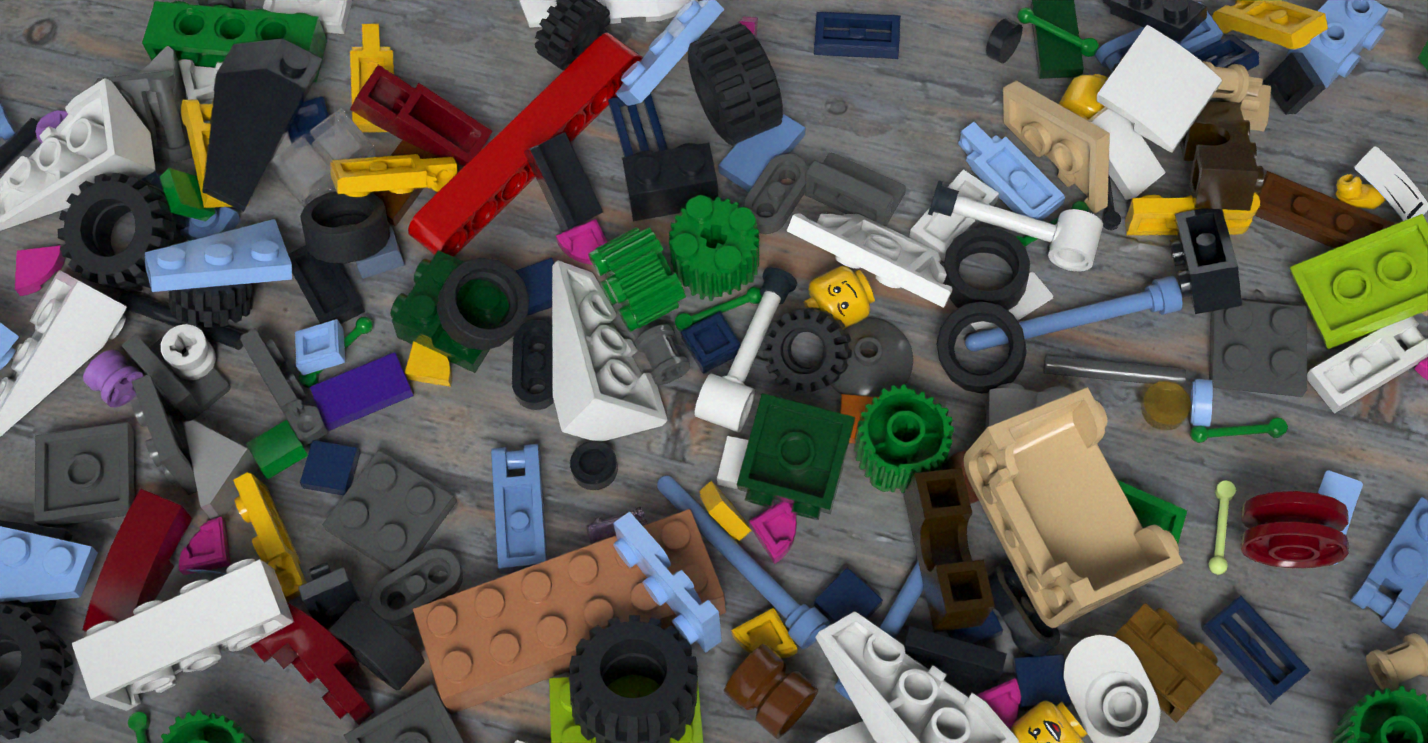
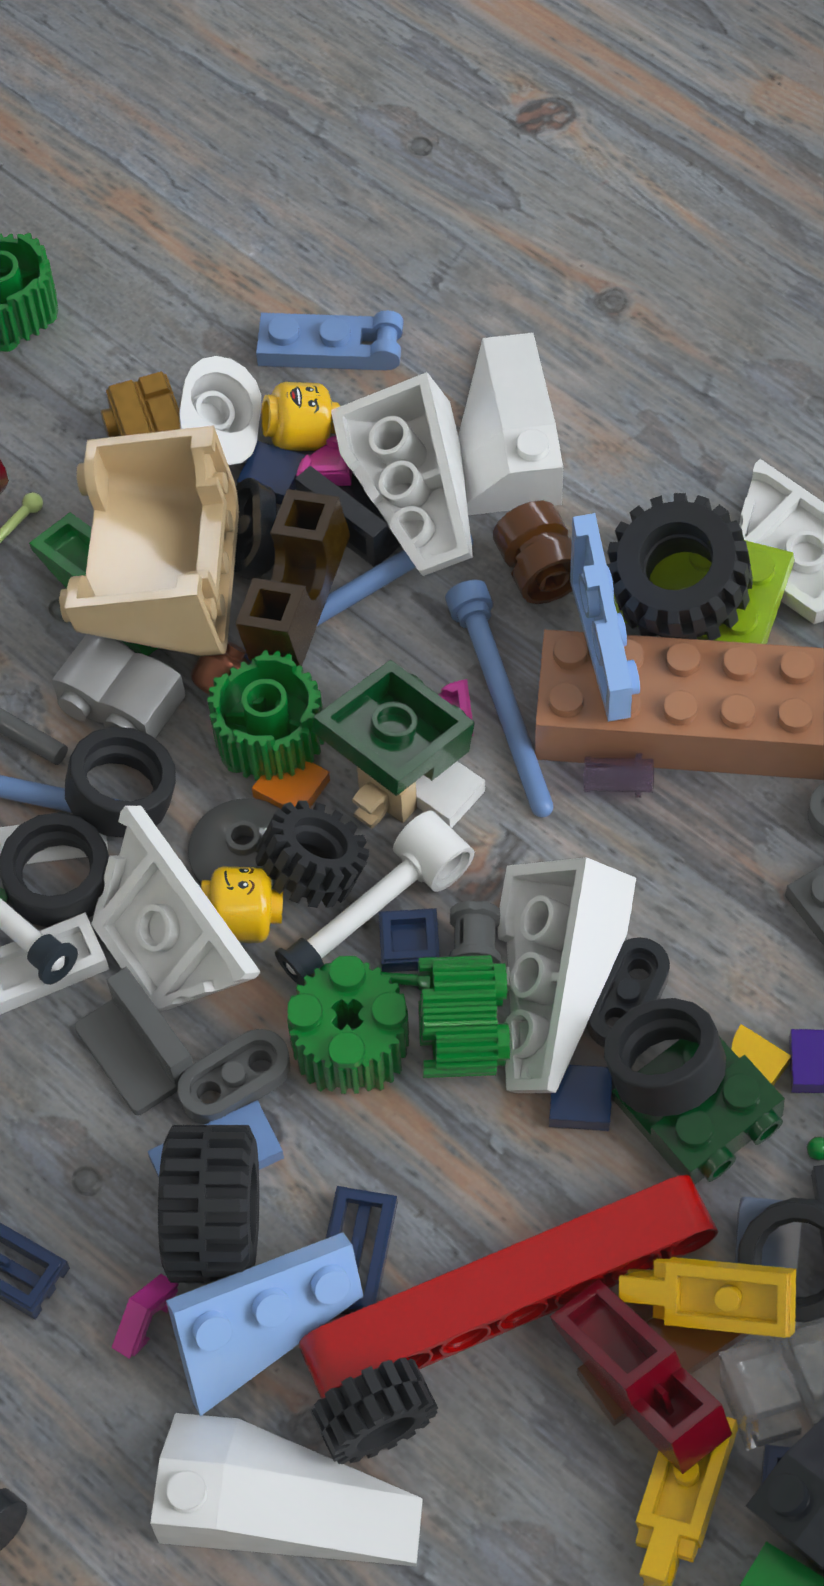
camera: 155 degrees left, 5 degrees down
(518, 508) = (717, 841): medium blue plate -> none
(563, 182) = (493, 1195): black panel -> none
(581, 241) = (497, 1129): dark pink tile -> none
(593, 465) = (615, 851): black tile -> none
(667, 179) = (355, 1141): black brick -> none
(724, 511) = (495, 748): yellow tile -> none
(765, 629) = (515, 620): yellow tile -> none
(845, 596) = (415, 614): dark blue tile -> none
(1240, 658) = (59, 455): dark blue tile -> none

